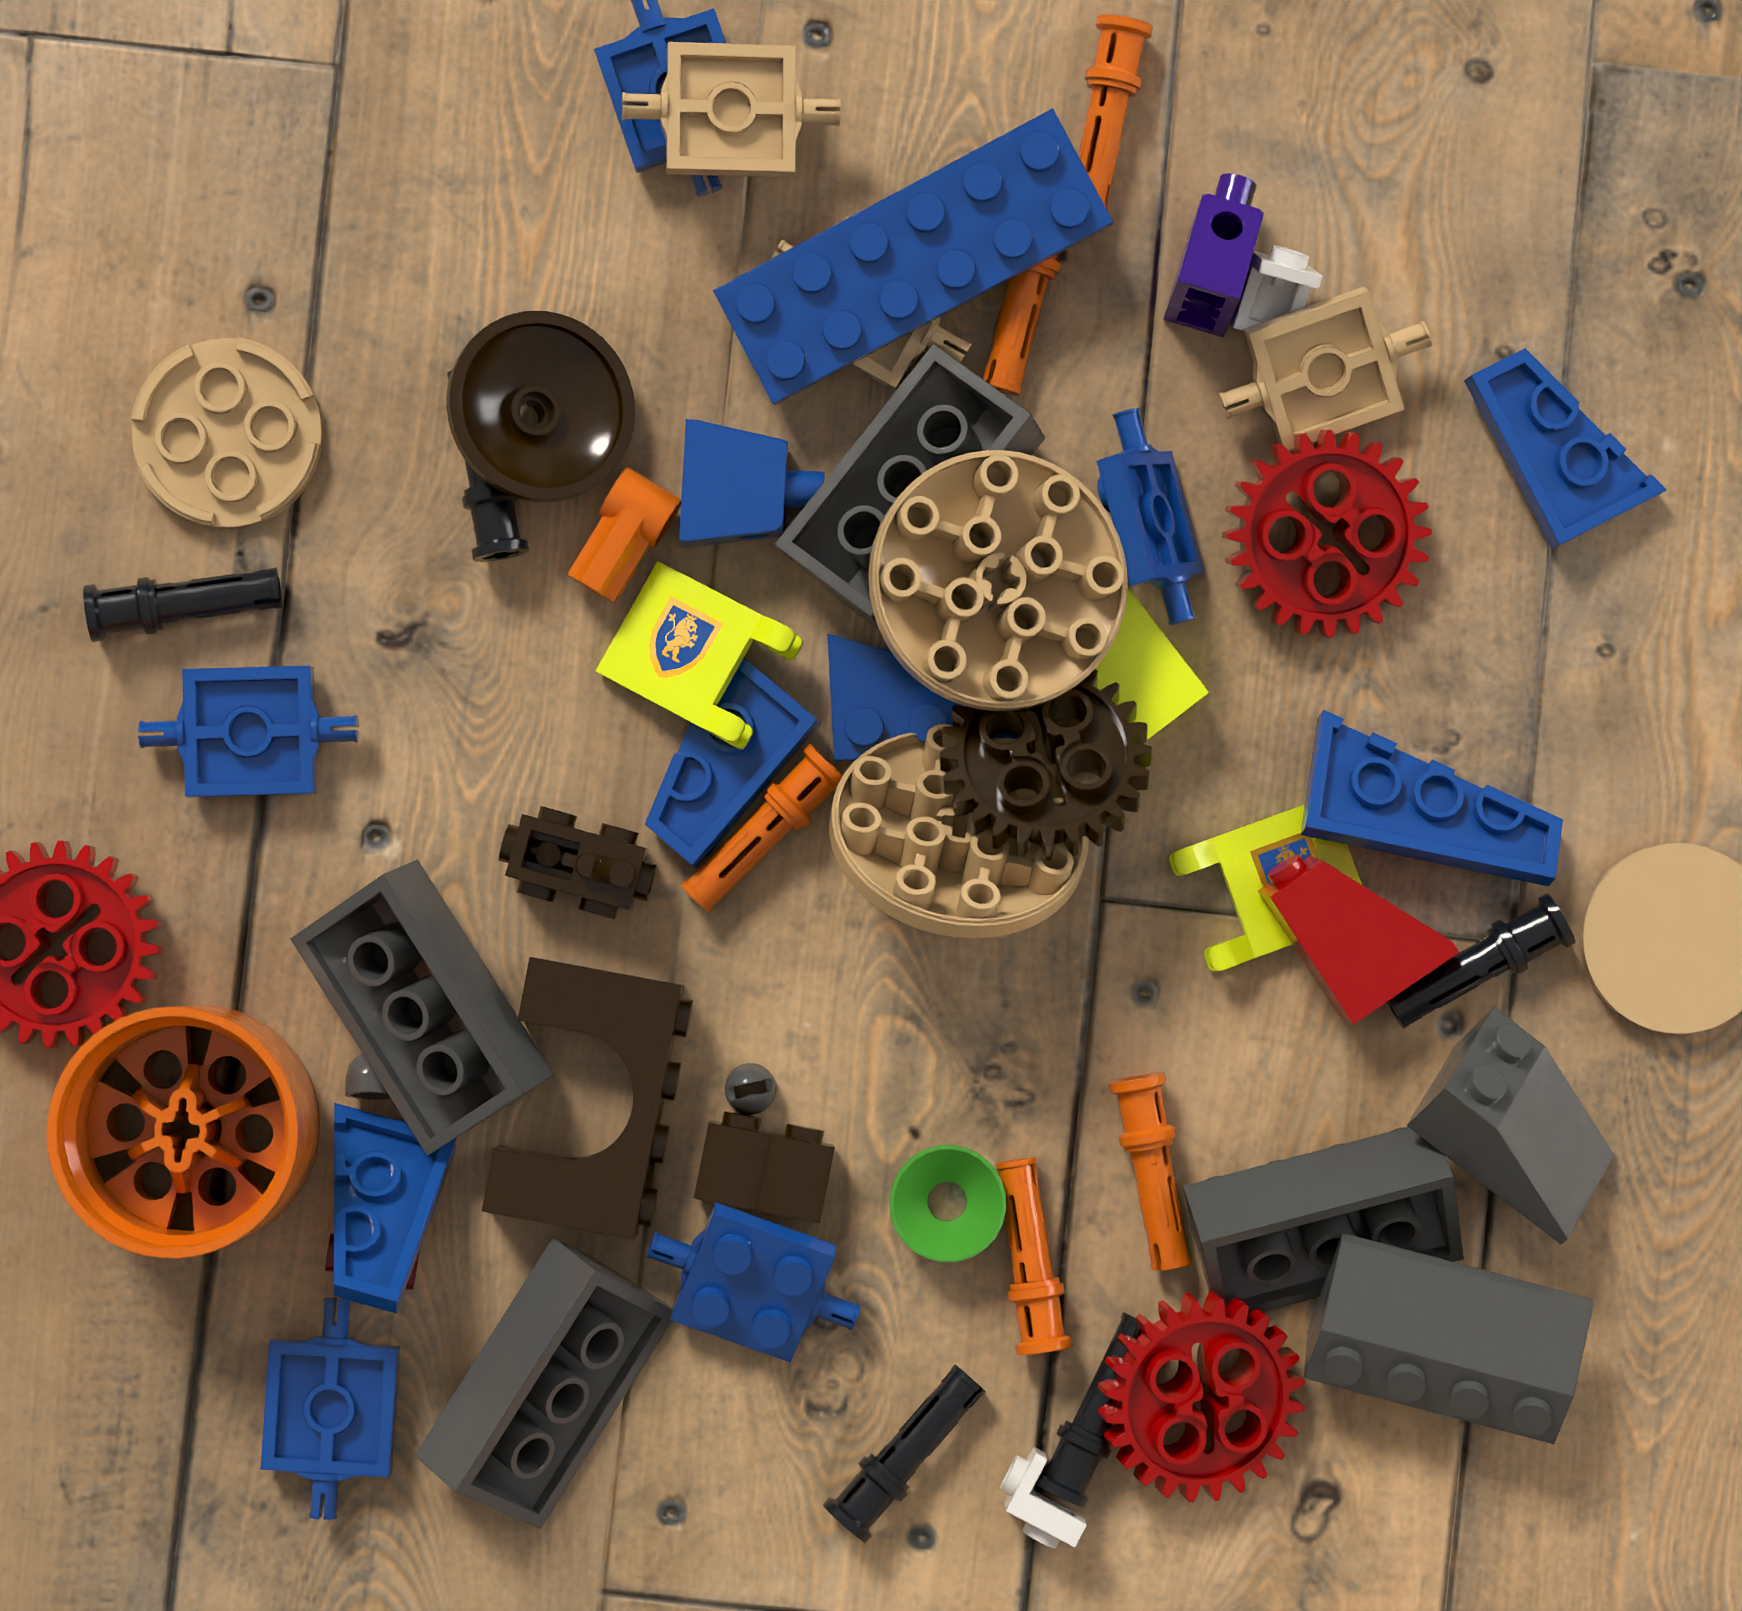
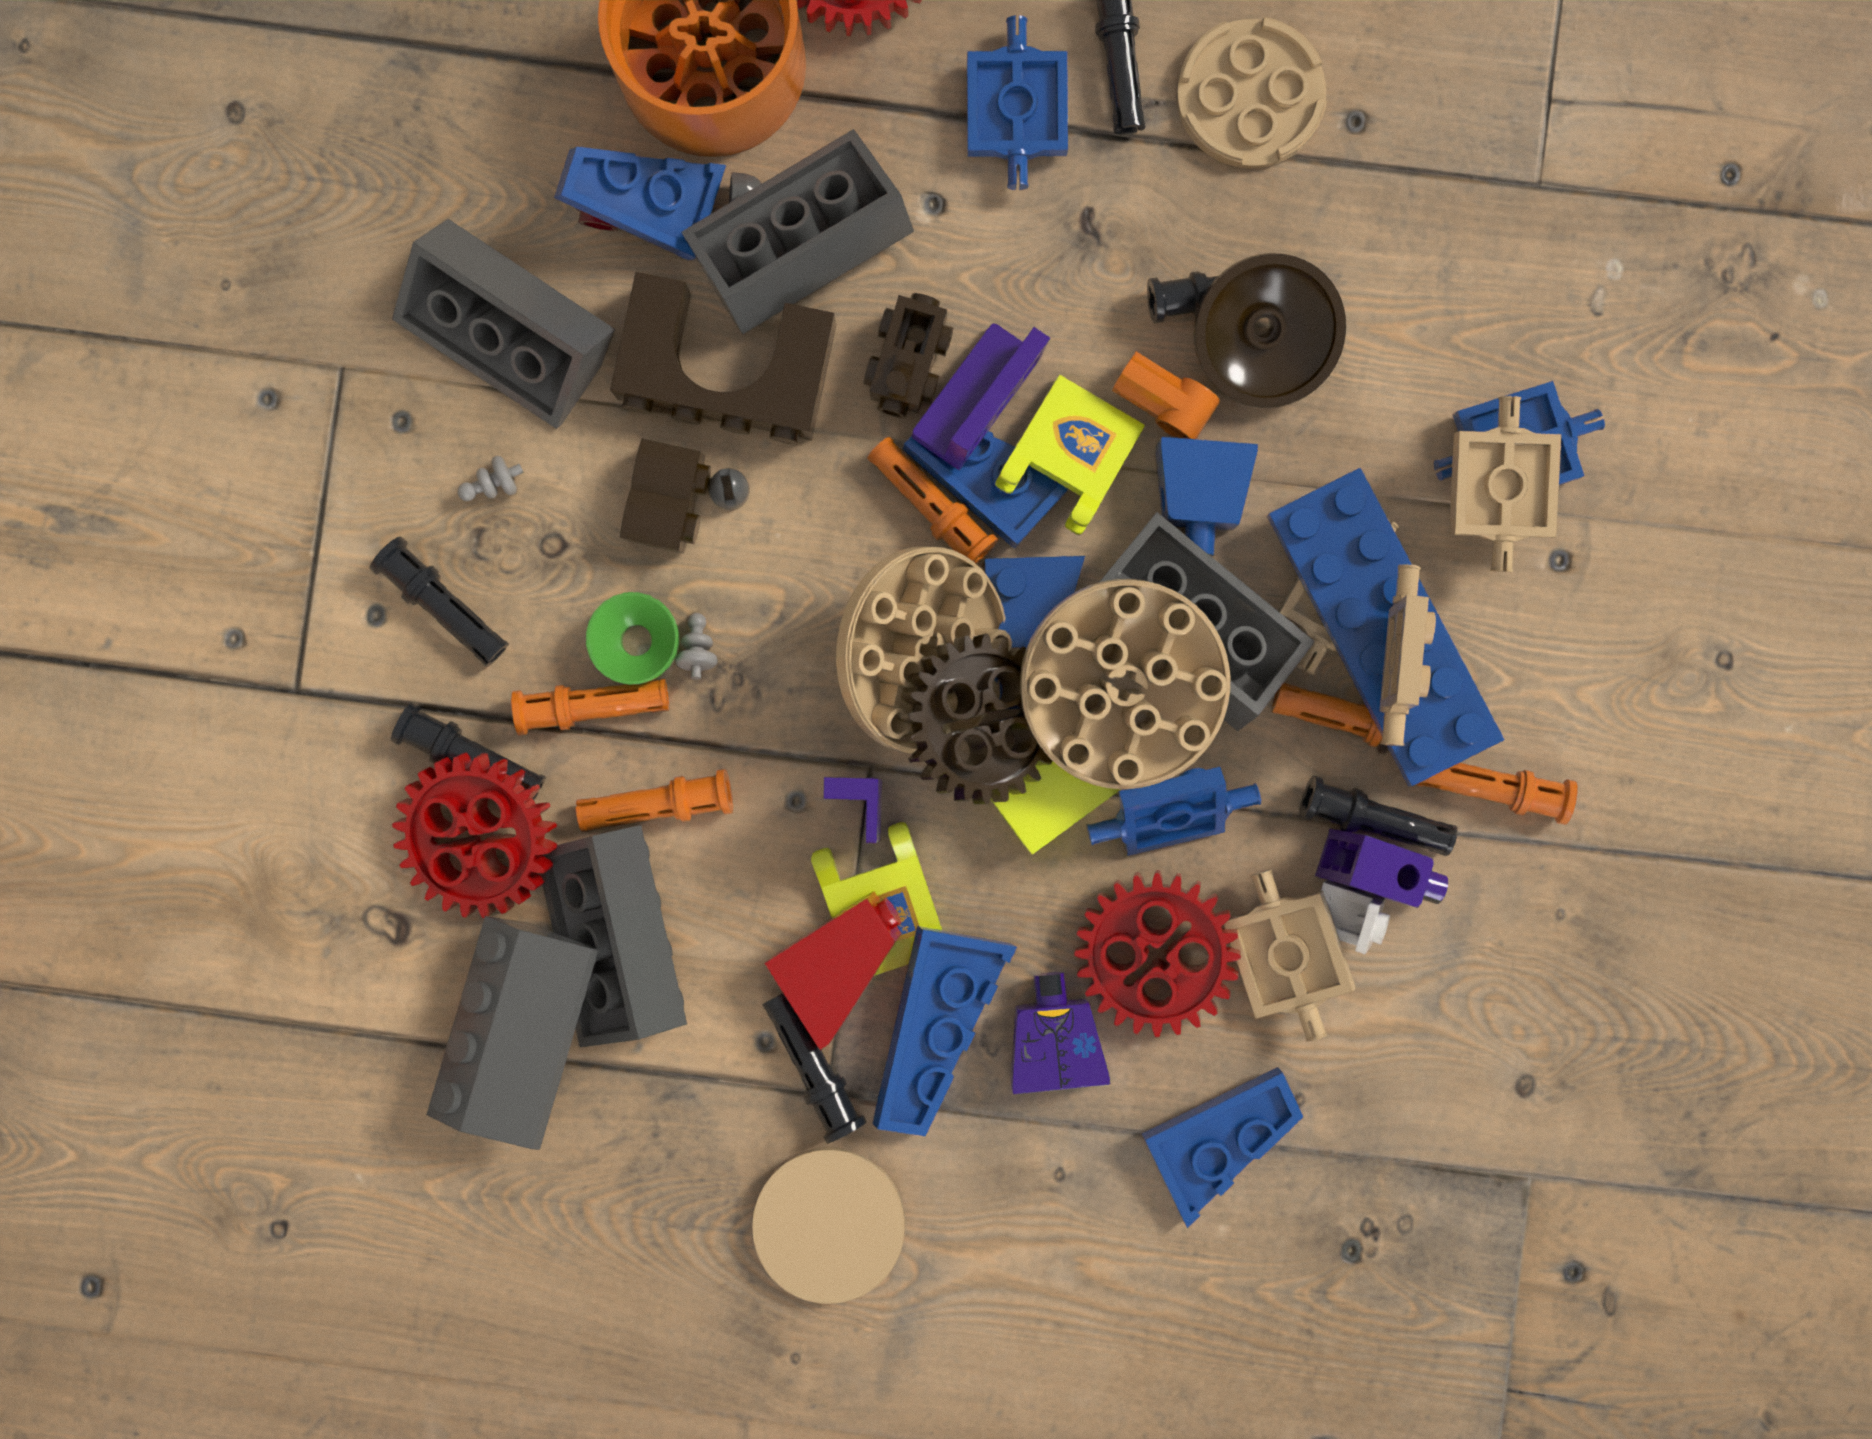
camera: 90 degrees right, 0 degrees up
(330, 1408) = (487, 157): blue plate -> none
(625, 772) = (978, 393): none -> dark purple panel
(749, 1396) = (488, 481): none -> light grey hair
(753, 1282) = (575, 484): blue plate -> none
(949, 1123) = (696, 656): none -> light grey hair
(984, 237) = (1403, 670): none -> tan plate
(1044, 1517) = (384, 708): white bracket -> none
(1136, 909) = (859, 789): none -> dark purple panel
(1143, 288) = (1355, 811): none -> black pin
(1440, 658) = (1055, 1041): none -> dark purple torso
(1515, 1125) = (680, 1090): dark grey slope -> none

